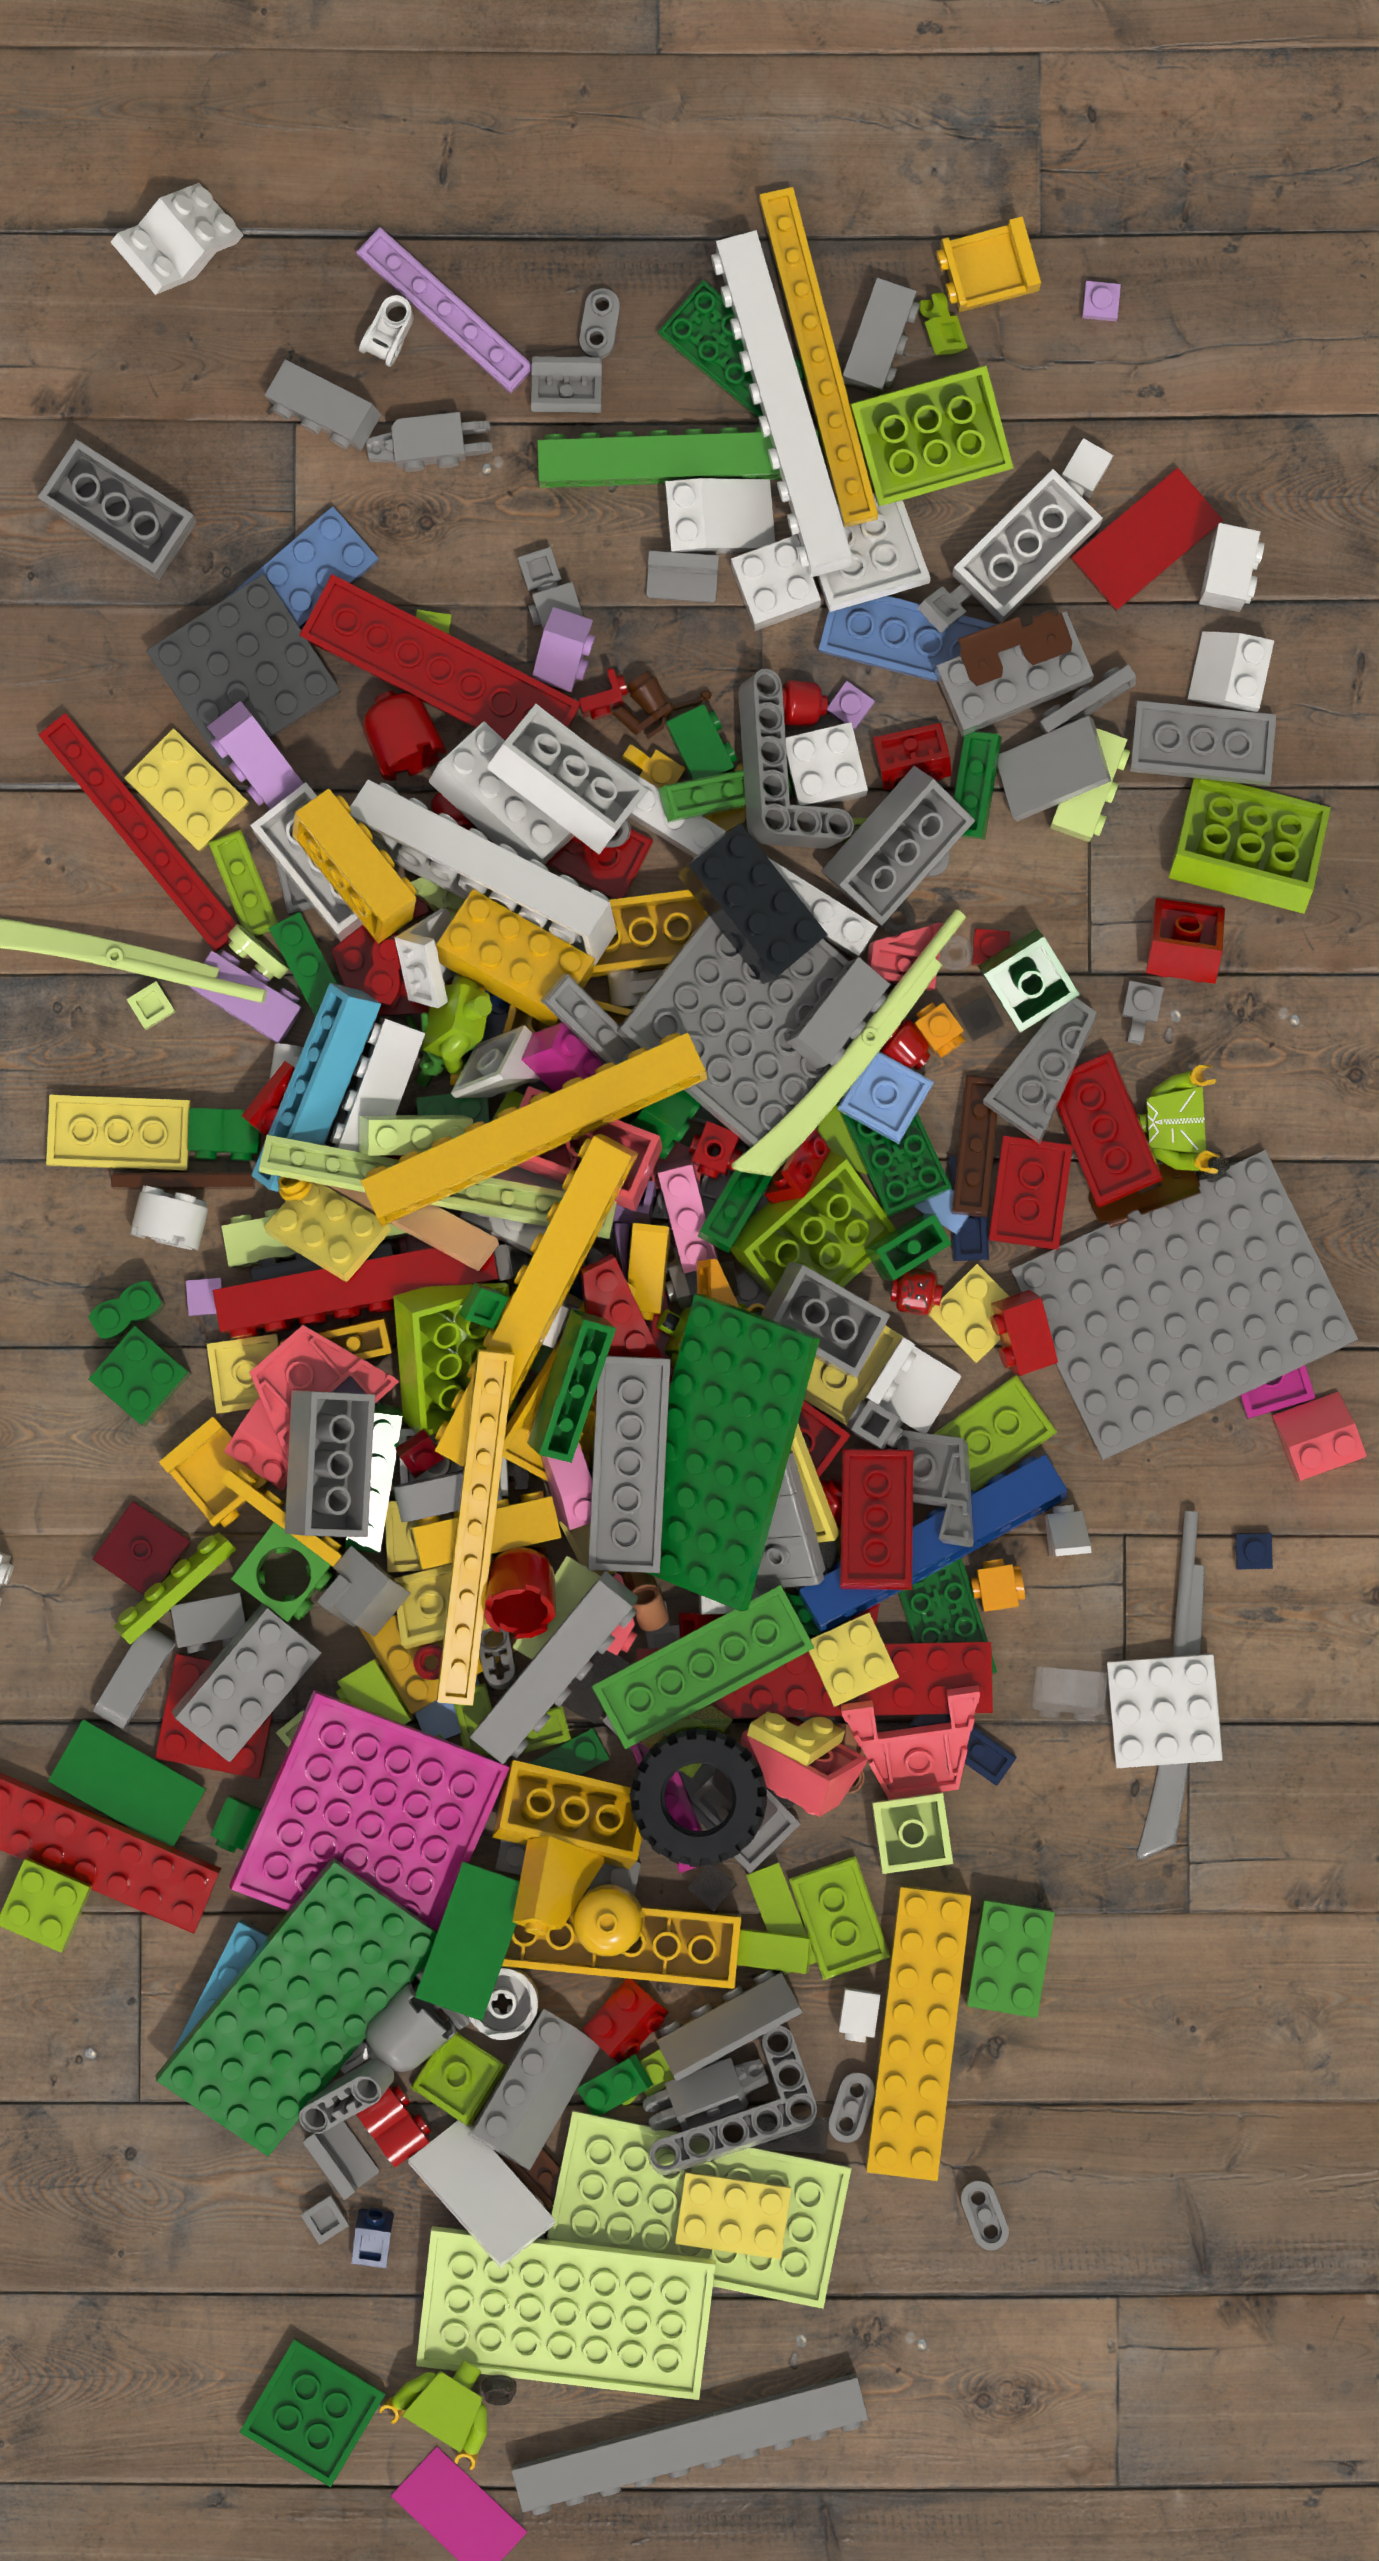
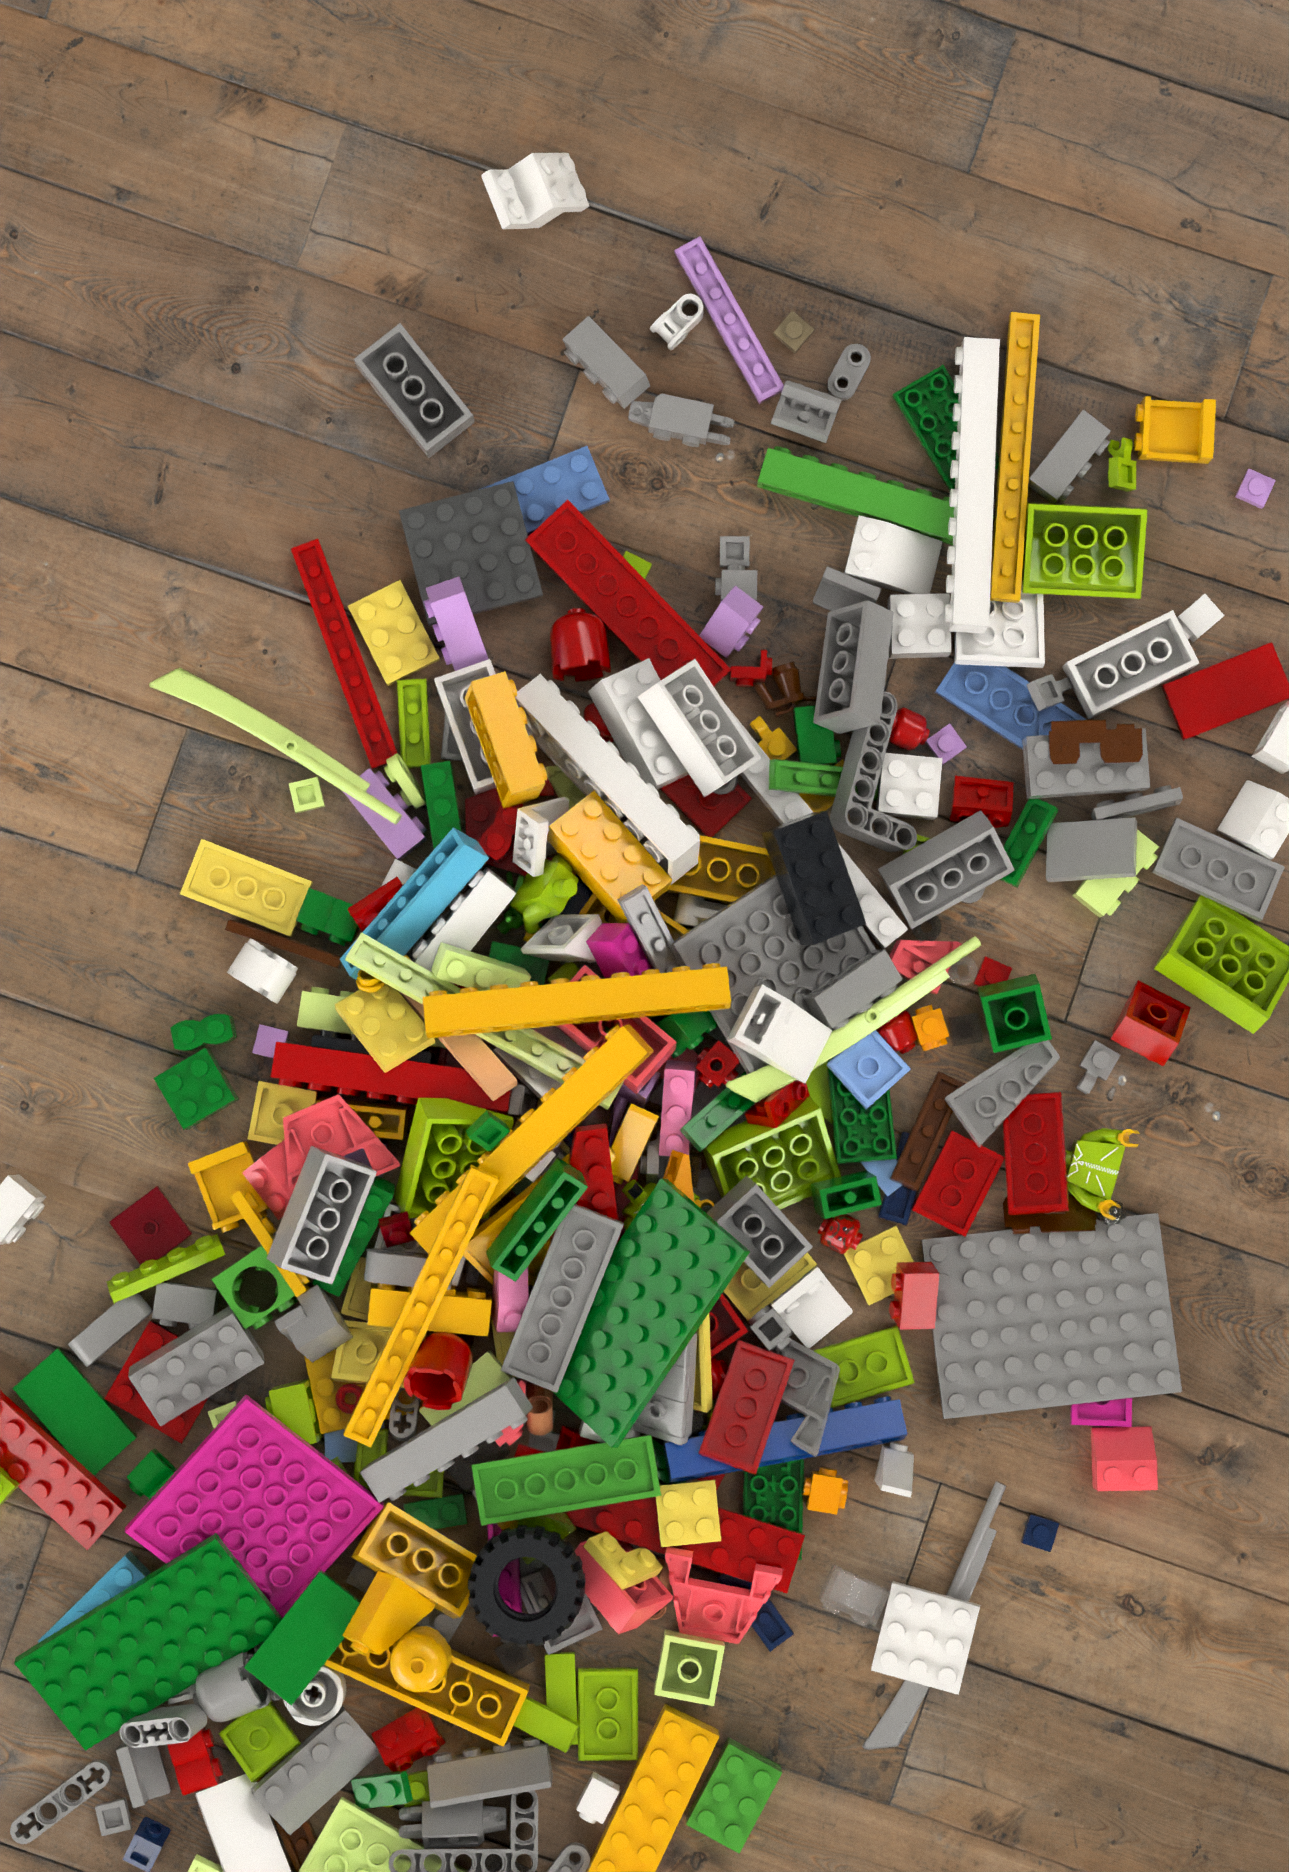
camera: 15 degrees right, 0 degrees up
(261, 2224) = (60, 1800): none -> light grey beam
(522, 299) = (793, 332): none -> dark tan plate
(717, 653) = (853, 667): none -> light grey brick
(772, 1088) = (779, 1033): none -> white slope

